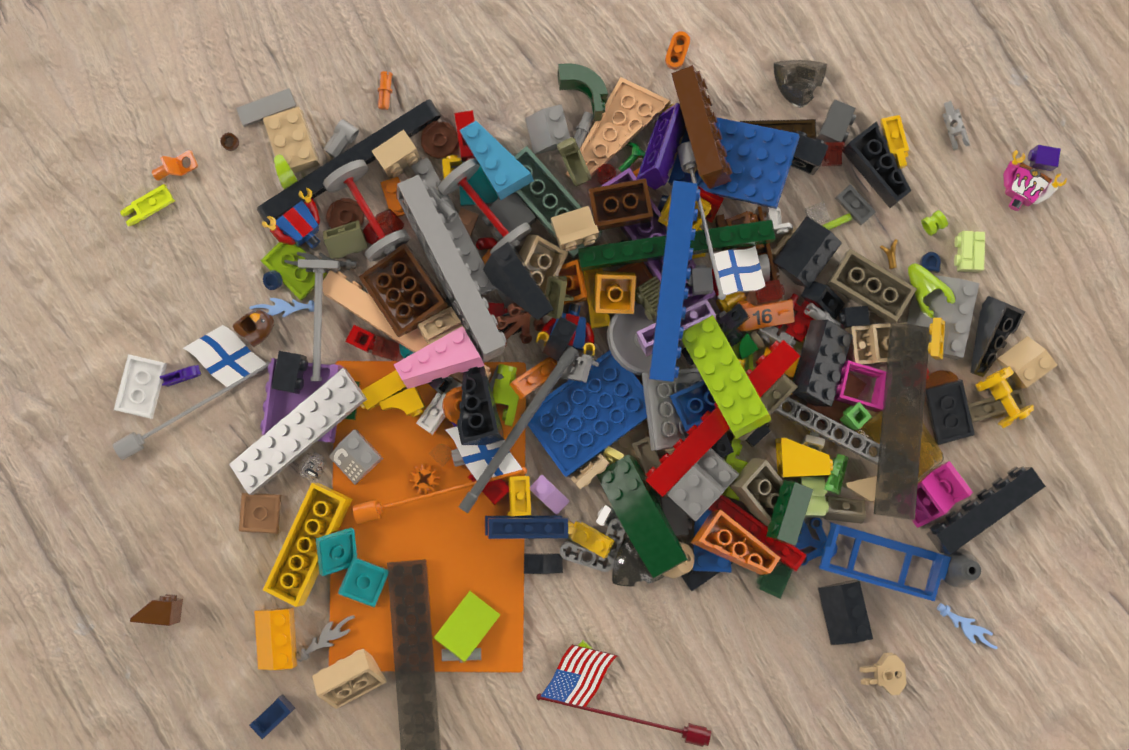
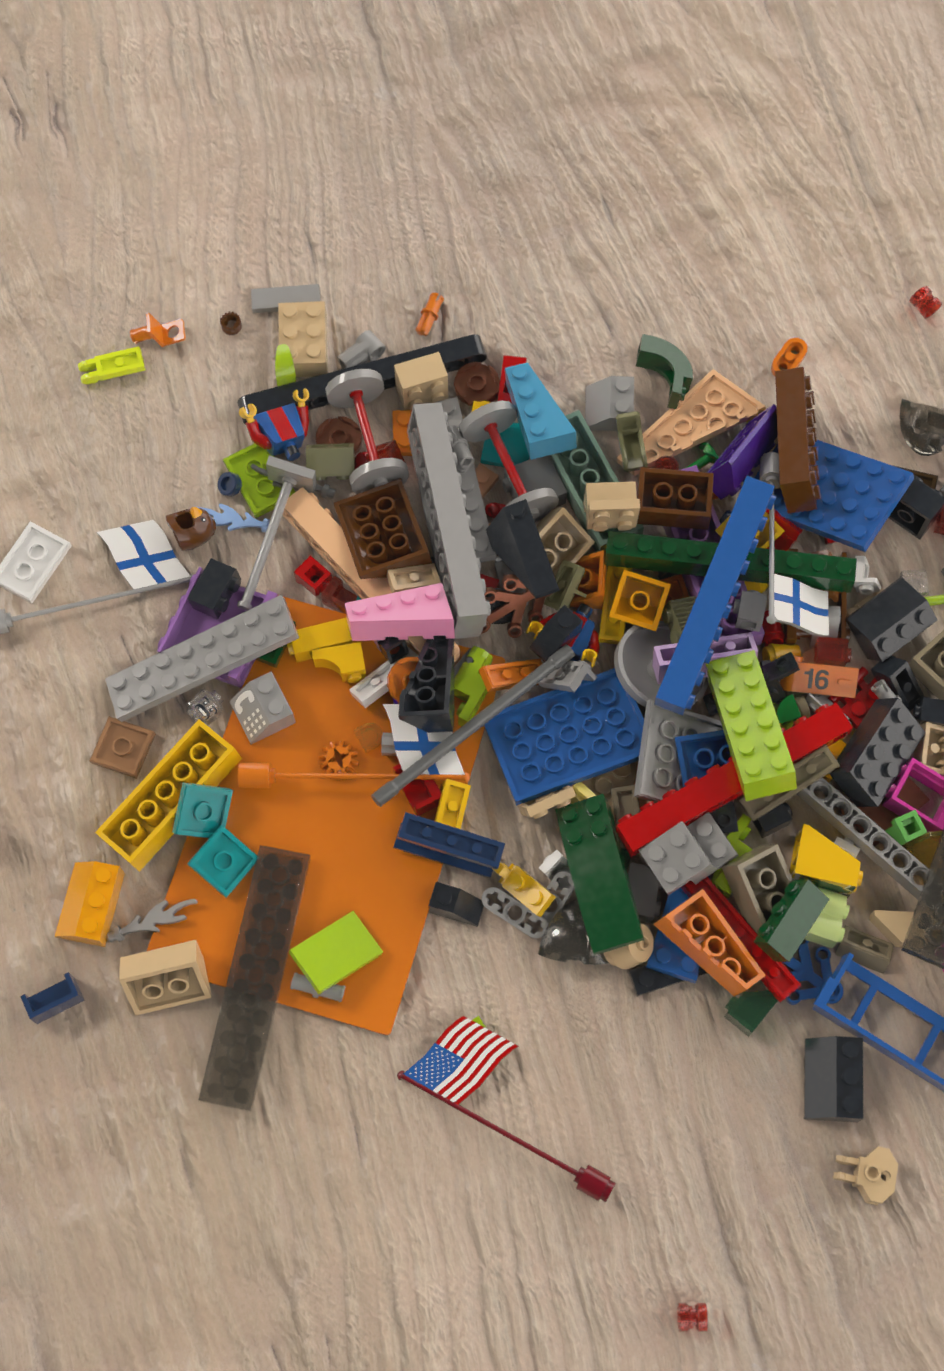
camera: 15 degrees right, 15 degrees down
(181, 375) = (83, 561): dark purple piece -> none
(549, 494) = (487, 818): lavender slope -> none
(583, 128) = (653, 413): light grey axle -> none
(835, 480) = (864, 899): bright green wing -> none

